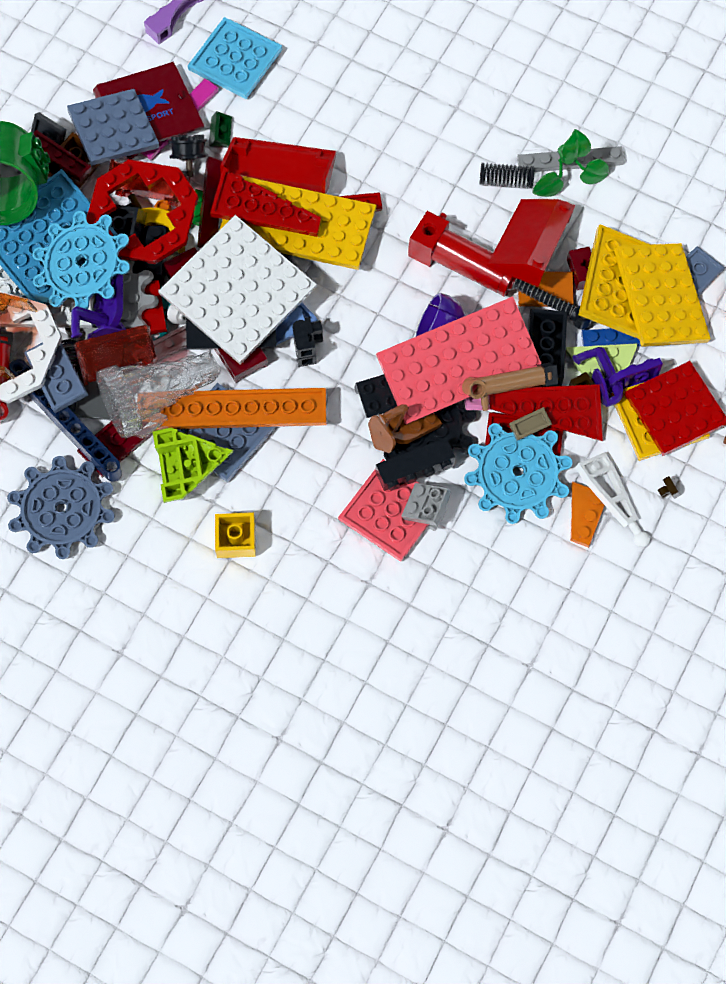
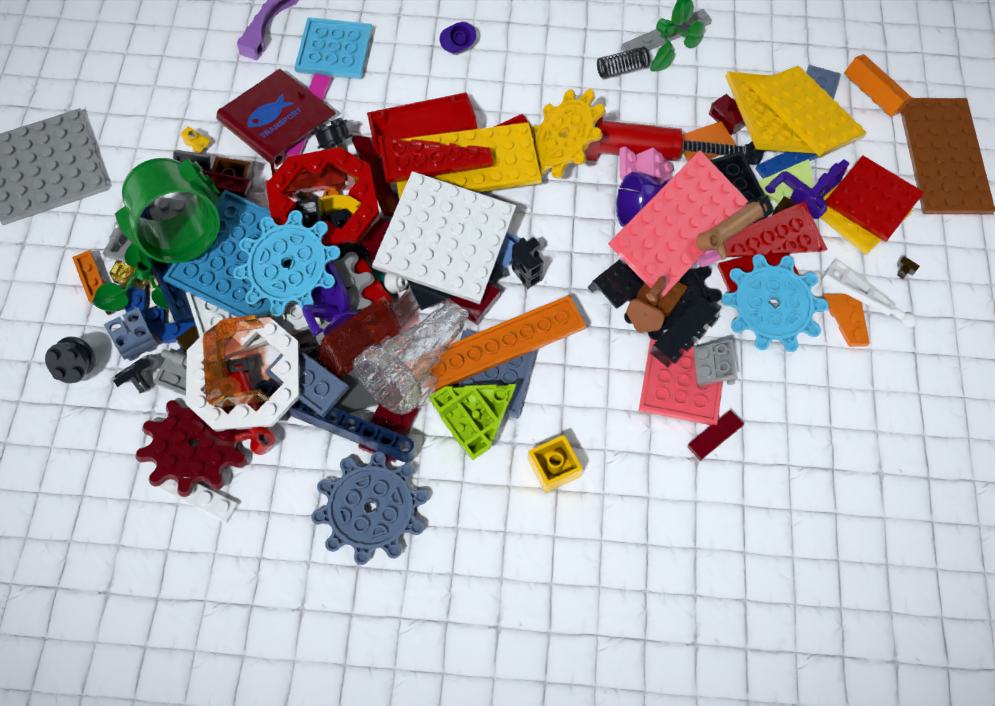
camera: 25 degrees left, 5 degrees down
(62, 108) = (197, 142): none -> yellow plate
(112, 126) = (252, 139): sand blue plate -> none
(220, 130) = (350, 110): dark green slope -> none
(355, 90) = (457, 37): none -> dark purple piece
(396, 570) = (715, 435): none -> dark red tile
(401, 229) = (578, 121): none -> yellow plate
(467, 289) = (648, 162): none -> bright pink bracket
(530, 424) = (765, 256): dark tan tile -> none
(531, 238) = (679, 103): red slope -> none

